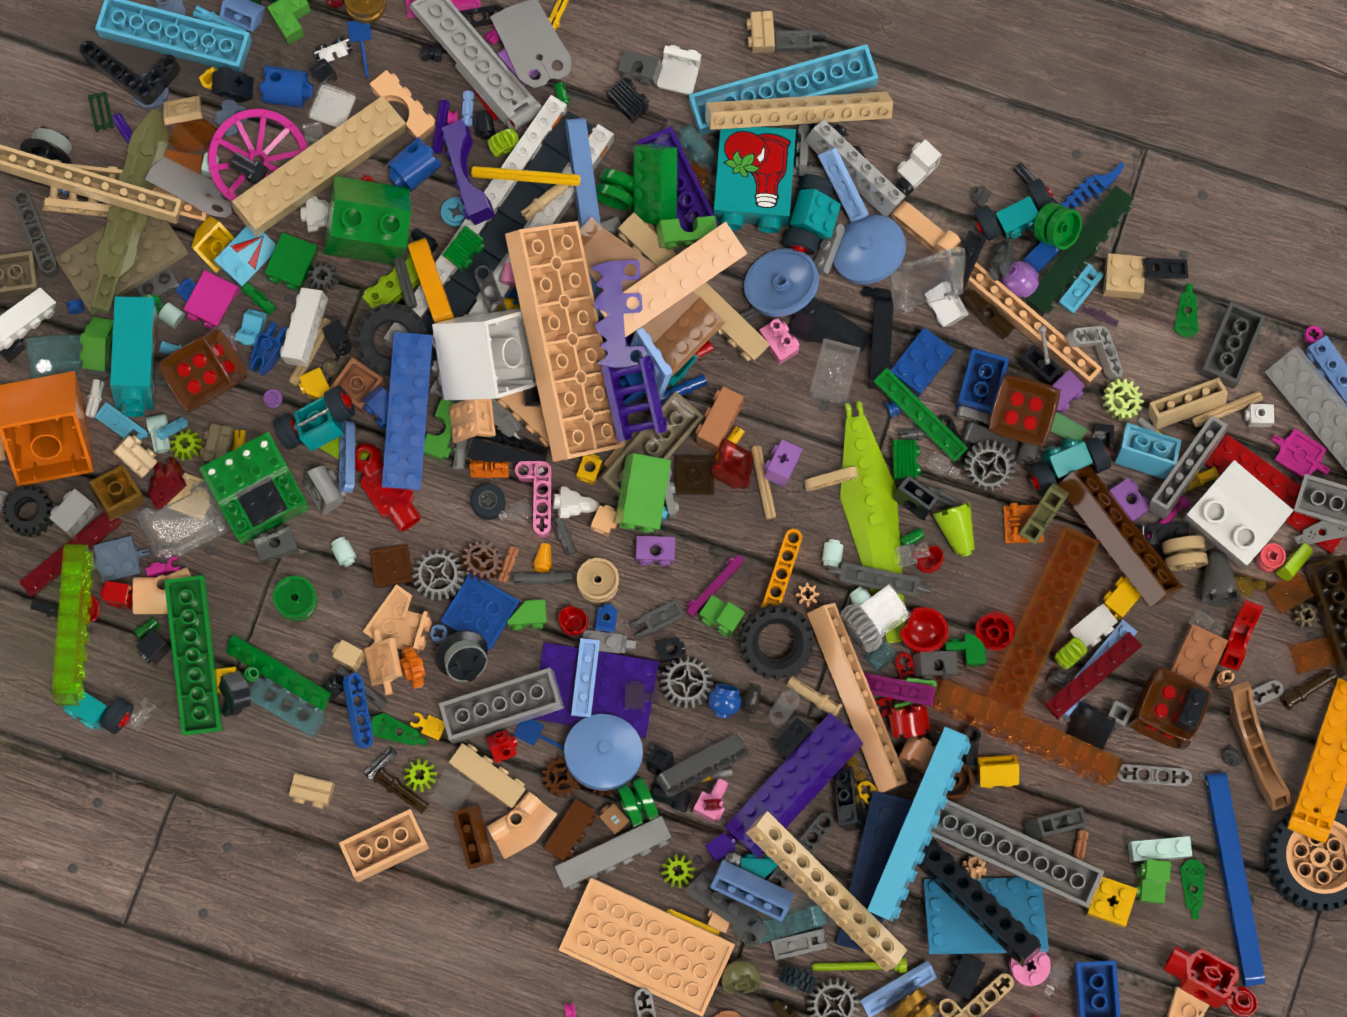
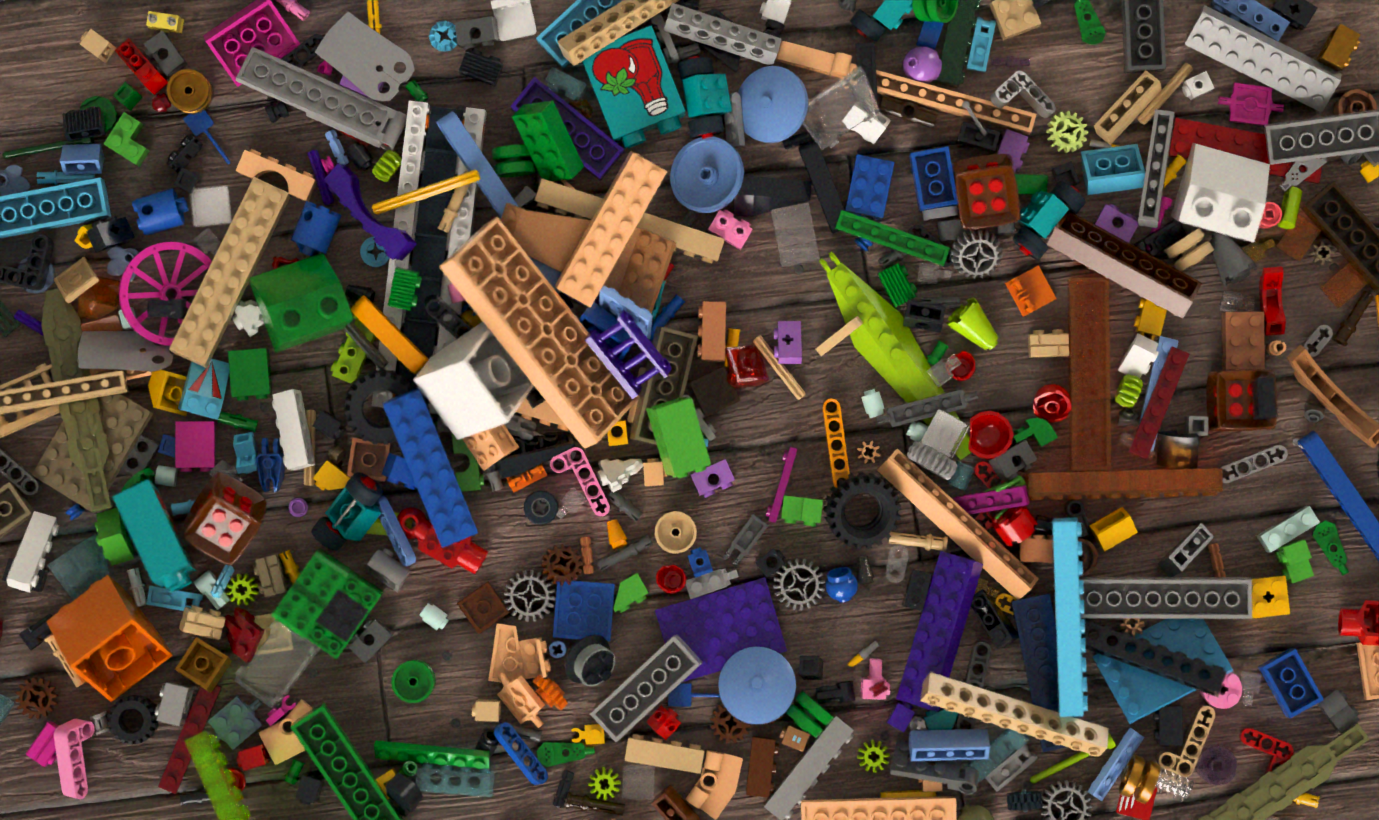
camera: 25 degrees left, 10 degrees up
(330, 277) = (279, 373): dark grey gear -> none
(585, 678) = (708, 626): light blue plate -> none
(608, 67) = (445, 45): none -> medium azure gear
(614, 303) = (569, 278): piece -> none
(636, 696) = (761, 620): clear purple brick -> none
(672, 235) = (587, 183): bright green arch -> none
(702, 765) = (850, 653): dark grey beam -> none
(843, 184) = (719, 55): light blue plate -> none
(1001, 260) = (897, 56): dark grey hinge -> none
(1017, 578) = (1048, 345): none -> tan brick
(1044, 513) = (1046, 276): olive arch -> none

